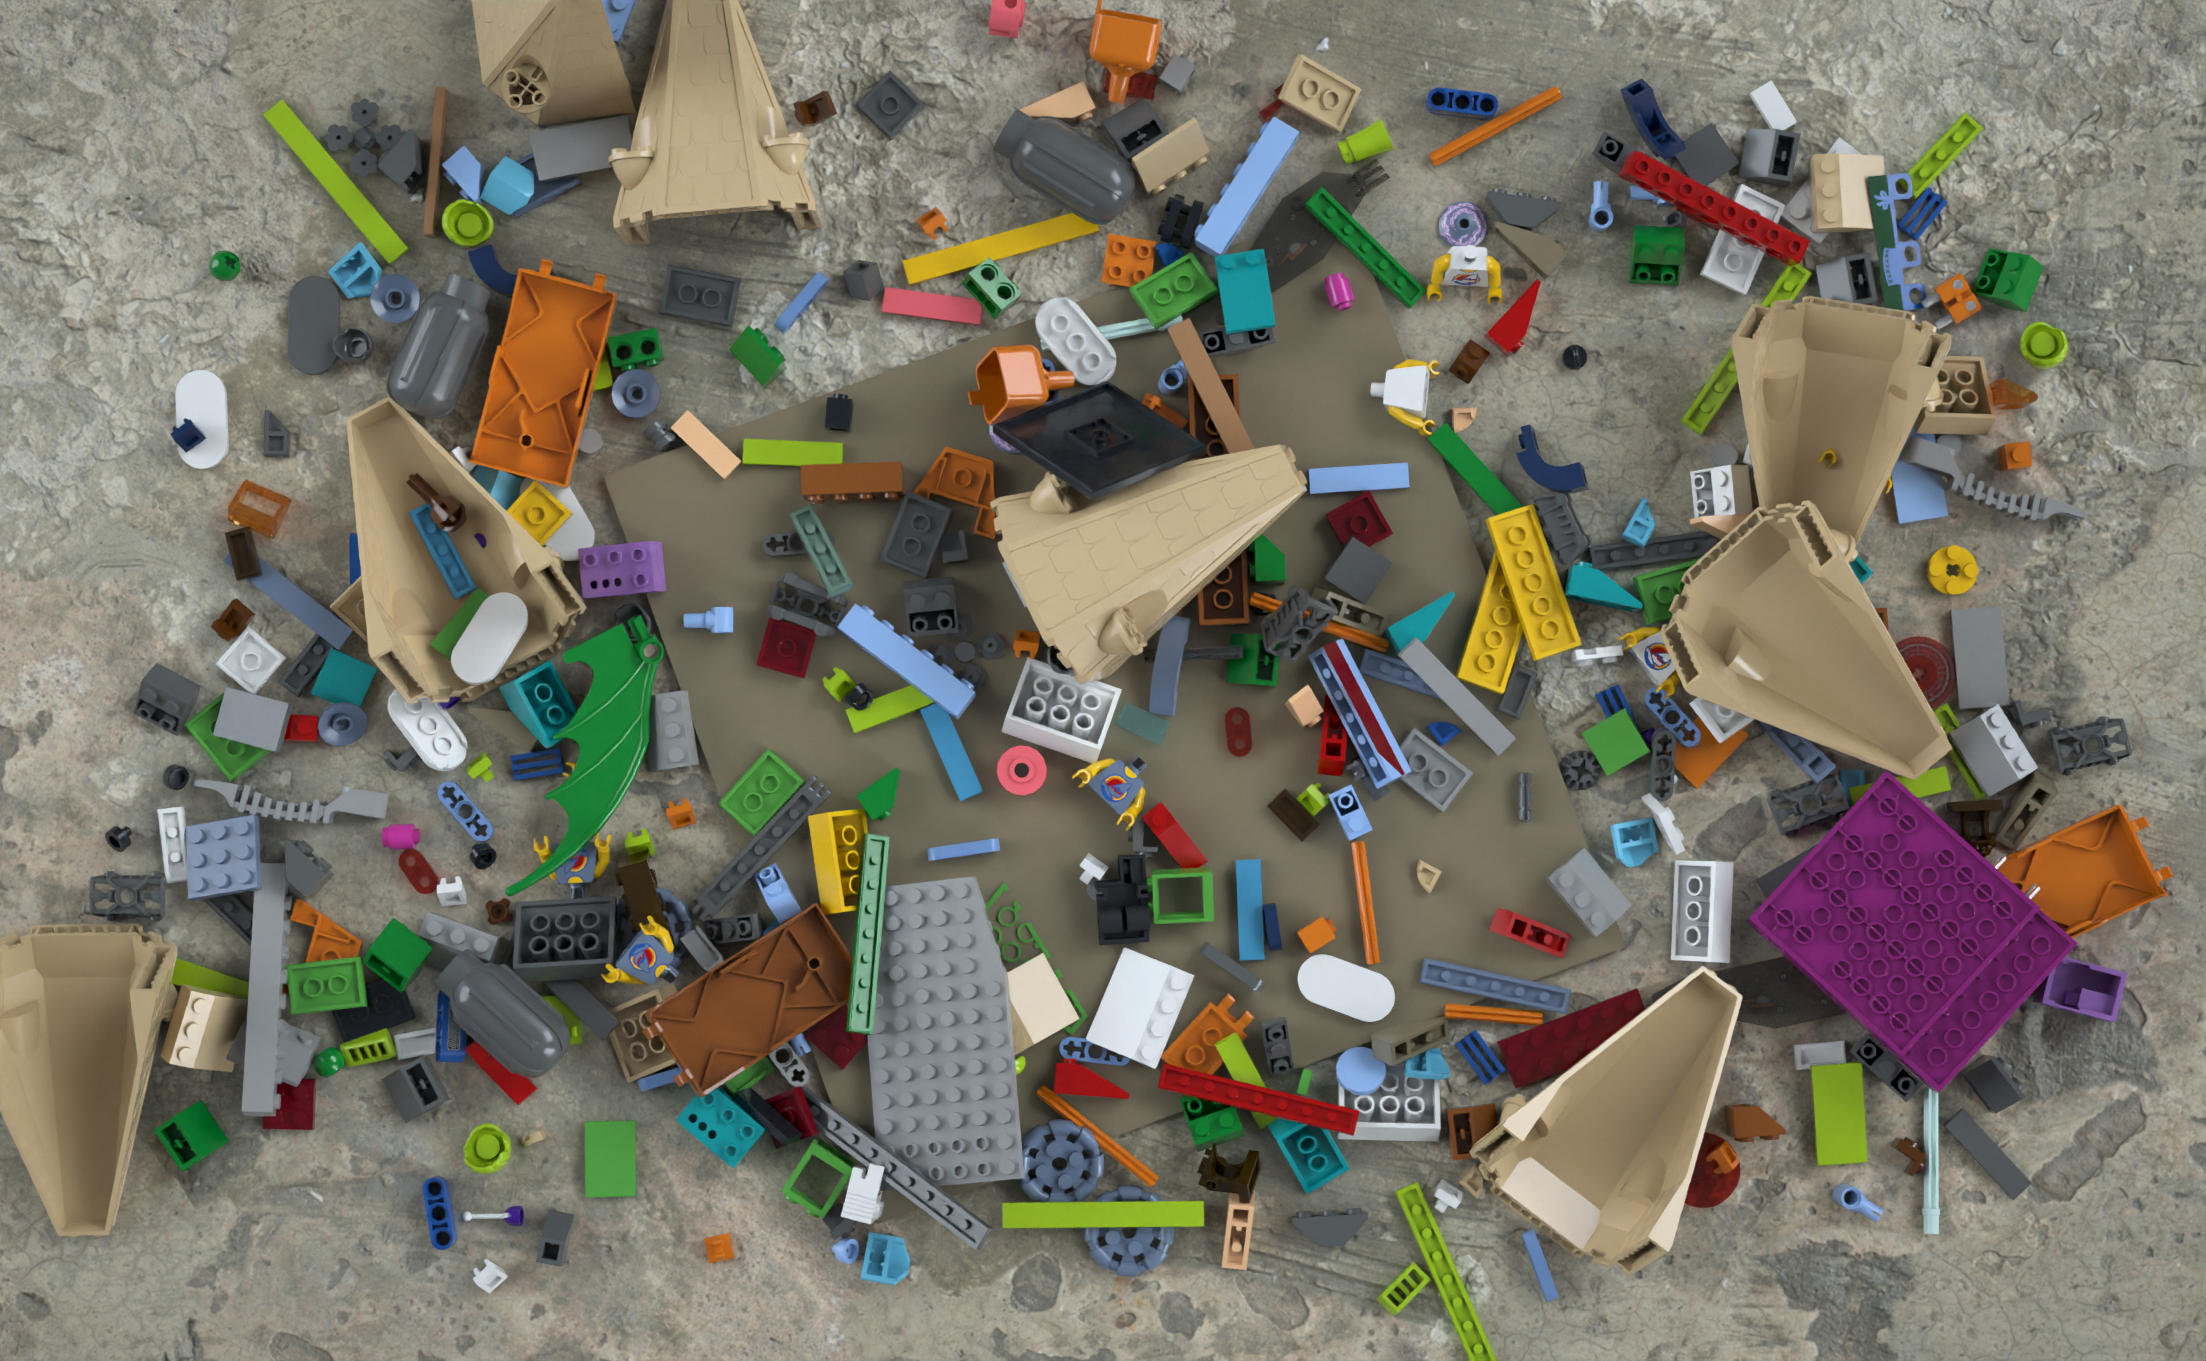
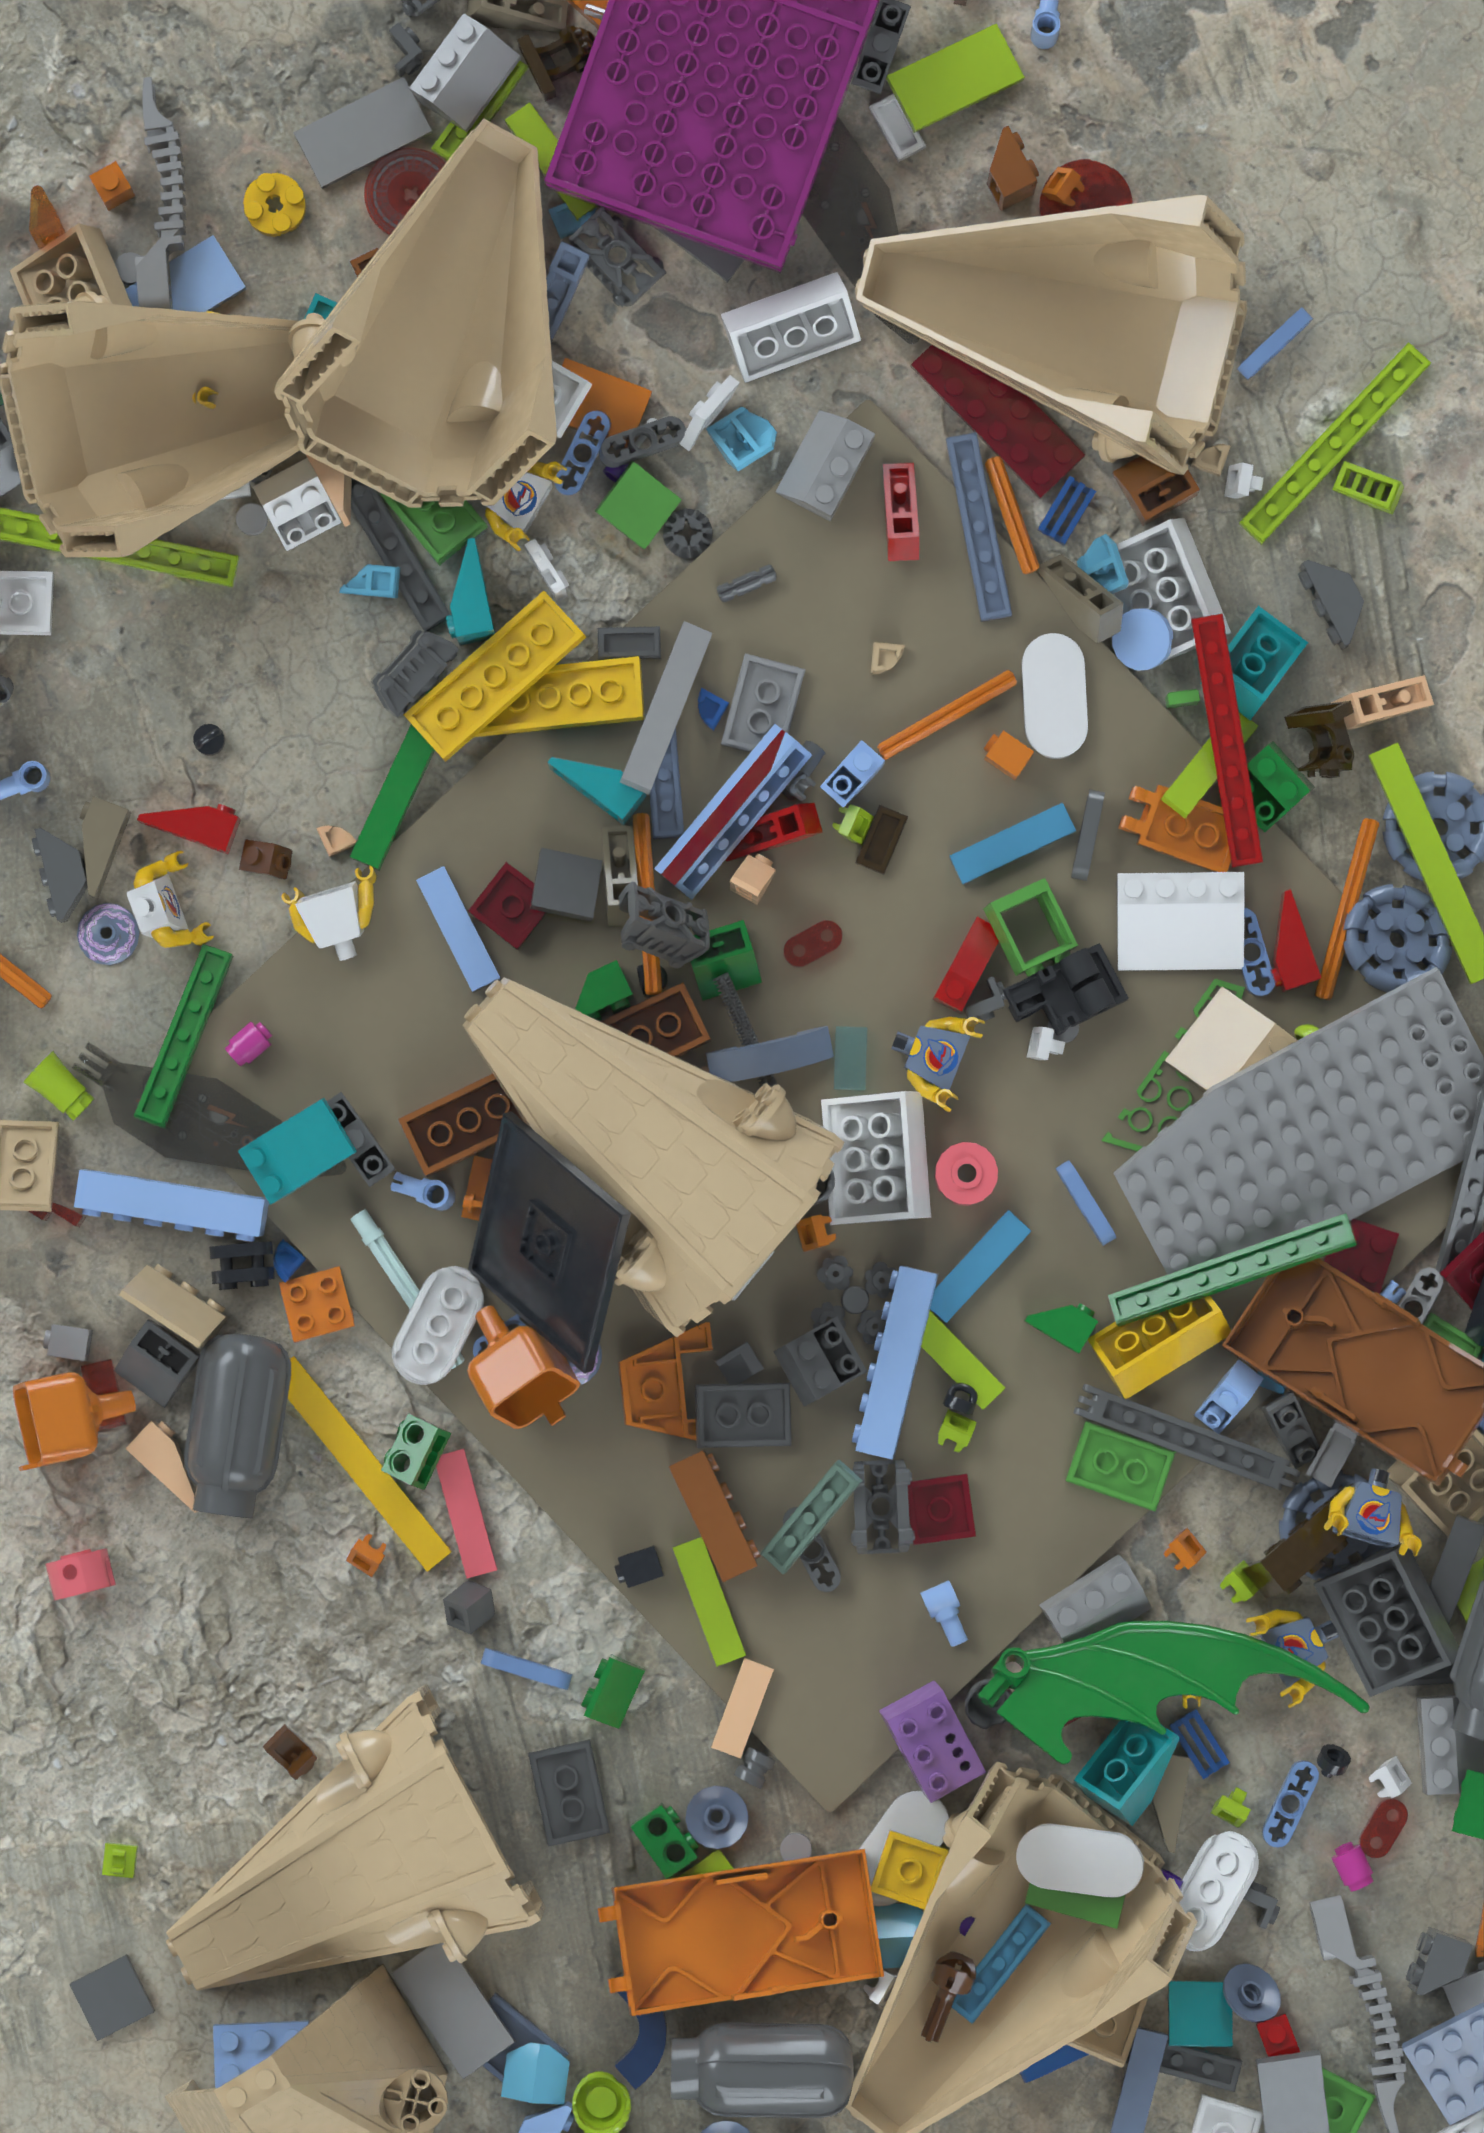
camera: 110 degrees left, 0 degrees up
(505, 914) = (1390, 1704): reddish brown plate -> none
(890, 105) = (248, 1665): dark grey tile -> none
(1173, 290) = (329, 1236): bright green tile -> none
(1209, 387) = (429, 1141): medium nougat tile -> none
(1272, 927) = (1021, 809): dark blue beam -> none
(1277, 1046) = (1155, 745): dark grey slope -> none
(1554, 478) = (362, 698): dark blue arch -> none
(1621, 697) = (575, 531): blue tile -> none
(1656, 255) = (49, 694): green slope -> none

